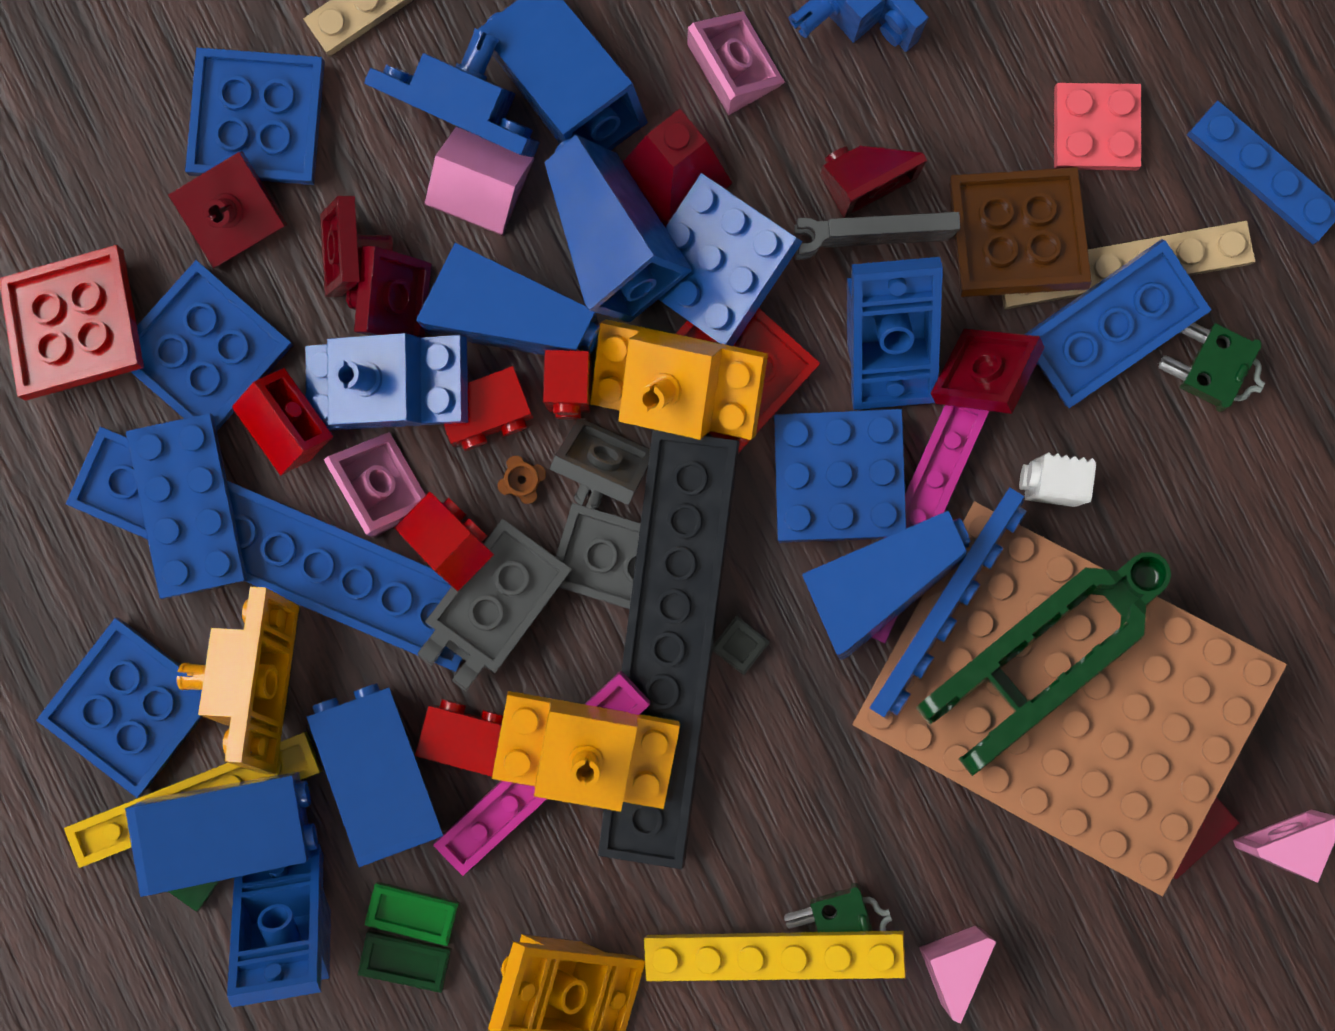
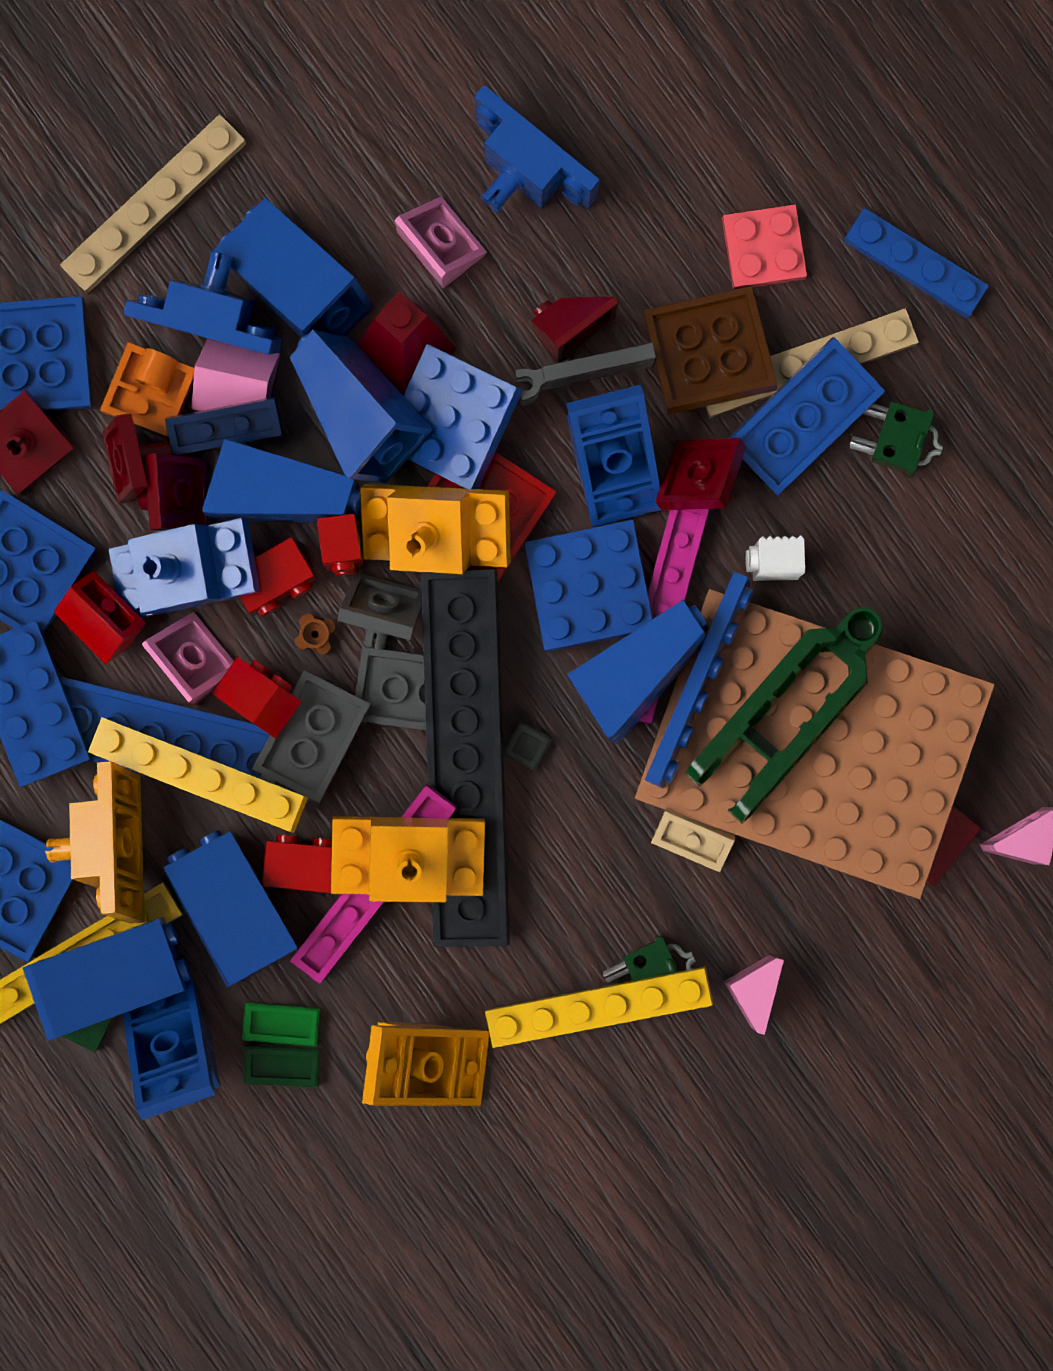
camera: 10 degrees left, 0 degrees up
(363, 619) = (198, 775): none -> yellow plate
(382, 173) = (149, 388): none -> orange plate
(469, 226) = (234, 423): none -> dark blue plate
(911, 782) = (693, 839): none -> tan plate

